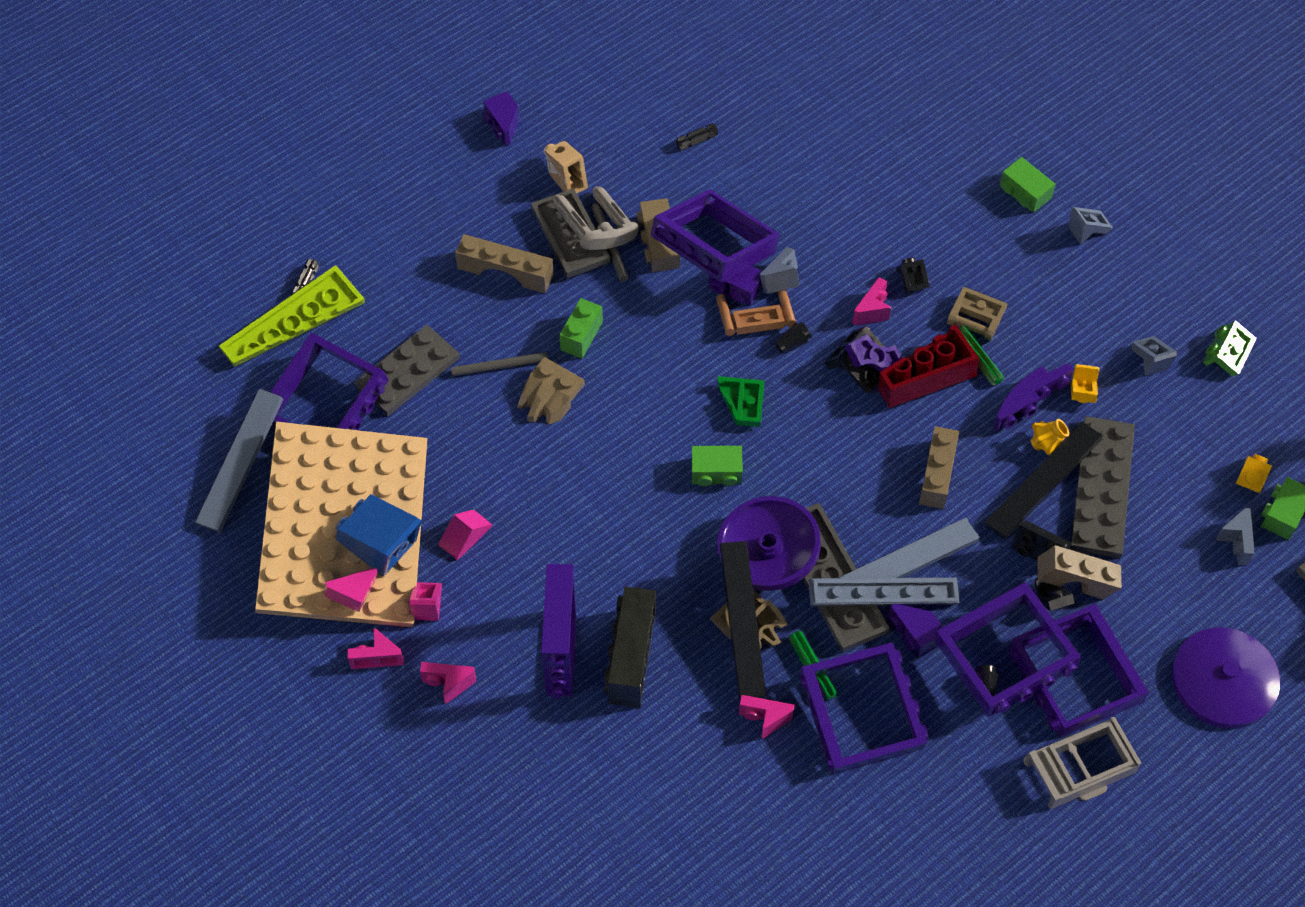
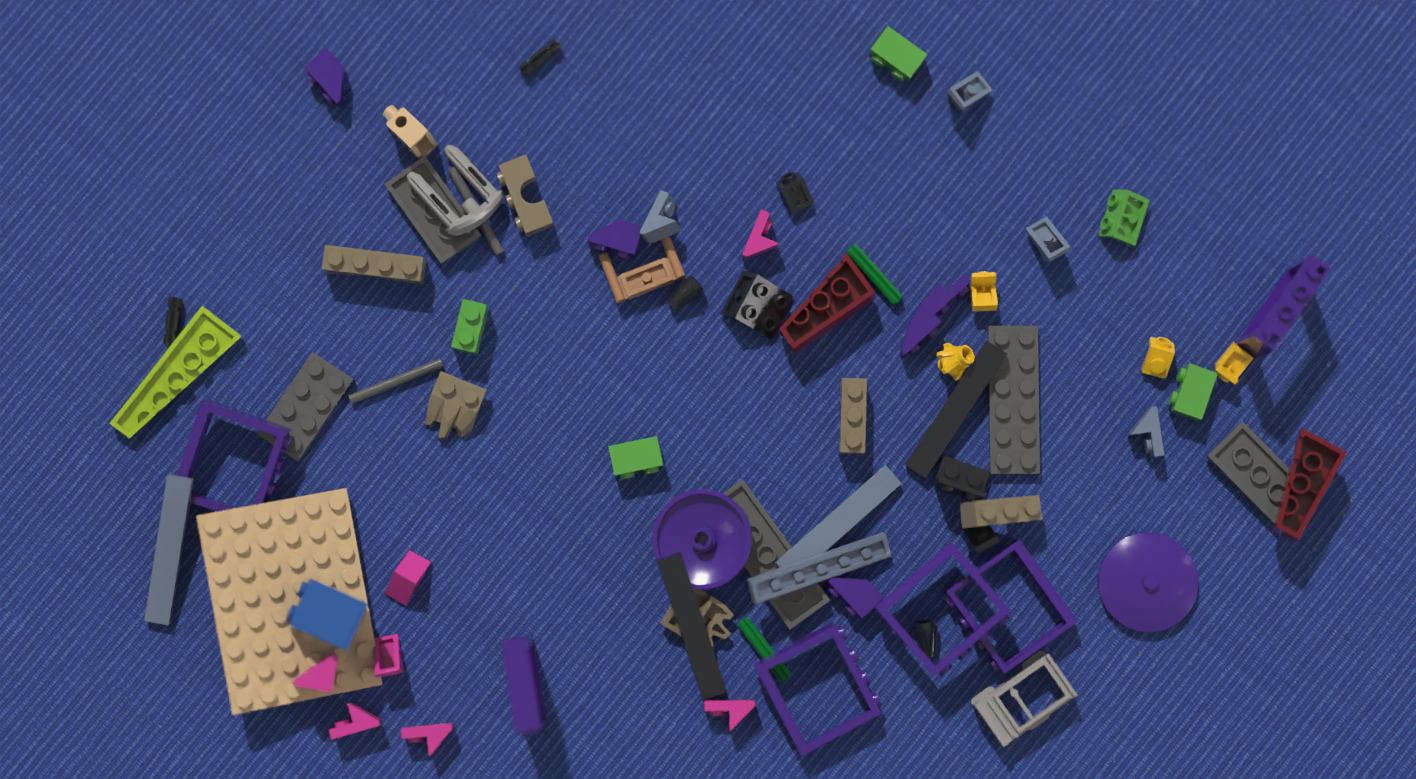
camera: 15 degrees left, 25 degrees up
(630, 647) = (593, 674): pearl dark grey brick -> none
(668, 231) = (566, 224): dark purple window -> none
(743, 399) = (648, 375): green wing -> none
(866, 352) = (761, 306): dark purple tile -> none
(979, 307) = (867, 217): dark tan plate -> none

